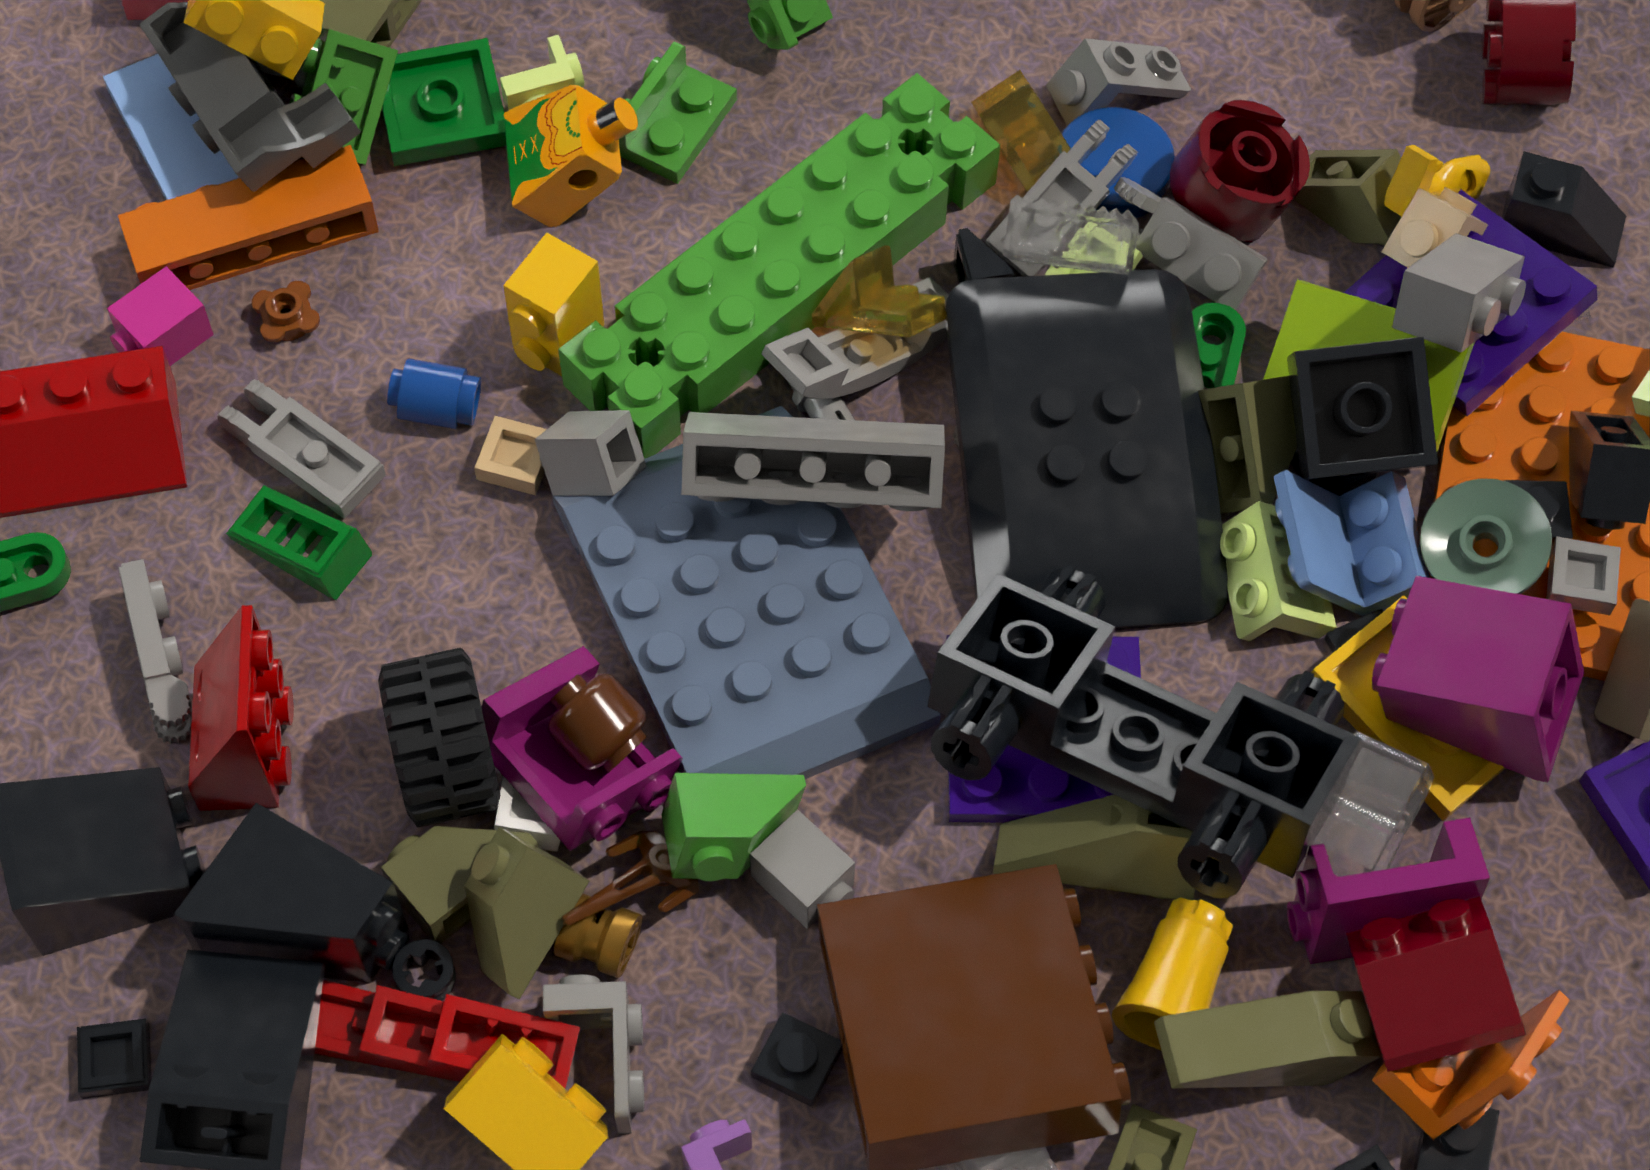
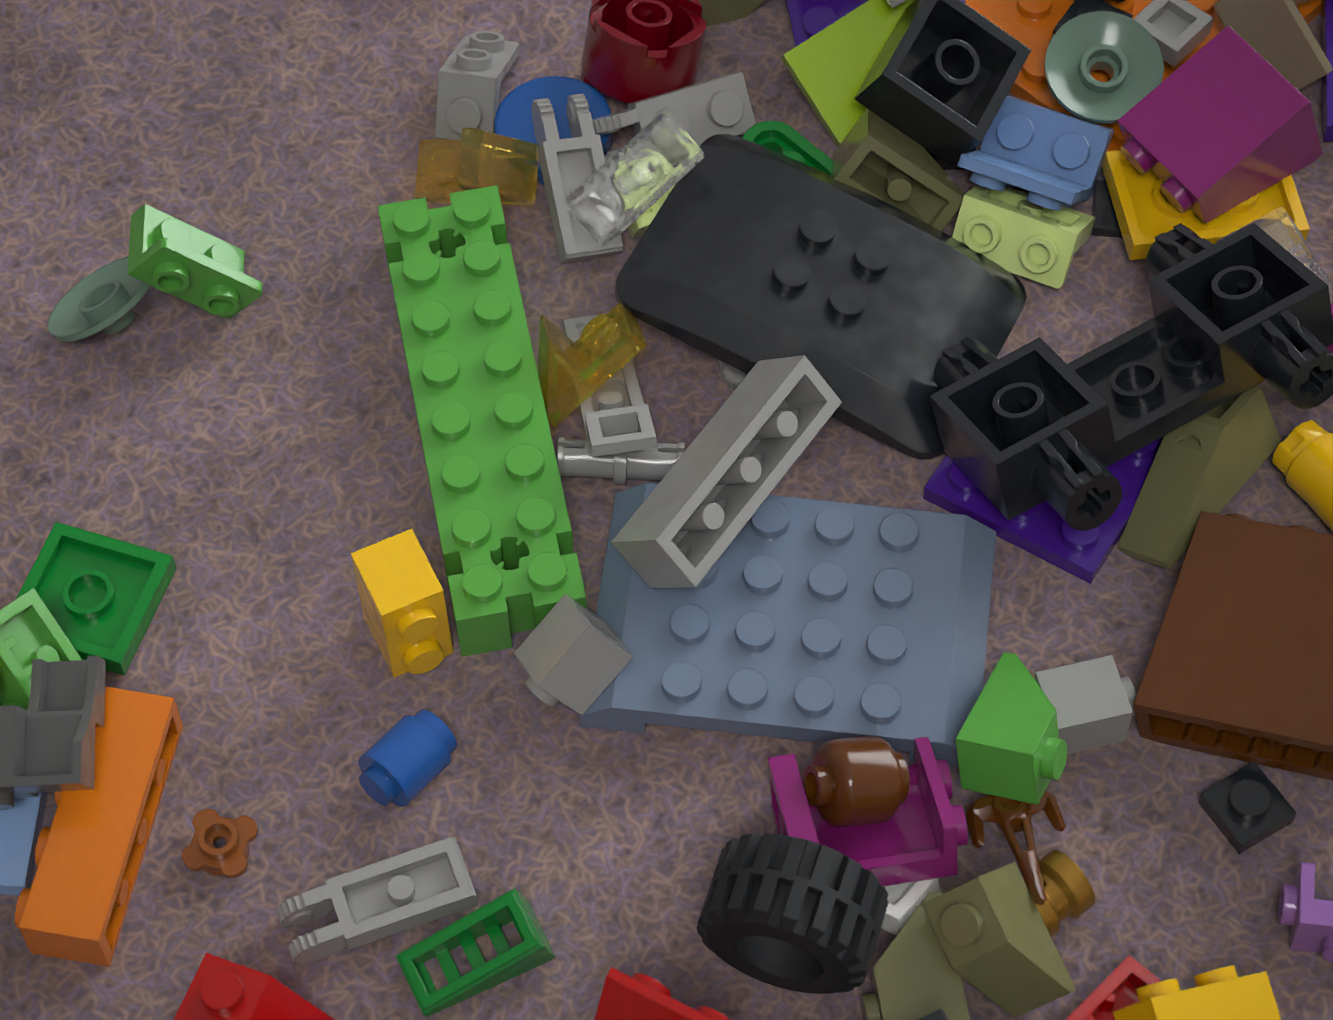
camera: 55 degrees left, 5 degrees down
(160, 315) = (153, 956): dark pink brick -> none
(511, 456) = (517, 726): tan plate -> none
(540, 81) = (152, 496): yellowish green bracket -> none
(564, 151) = (238, 514): light orange torso -> none
(601, 1005) = (1156, 926): light grey bracket -> none
(675, 115) = (254, 423): bright green bracket -> none
(976, 260) = (589, 276): black slope -> none

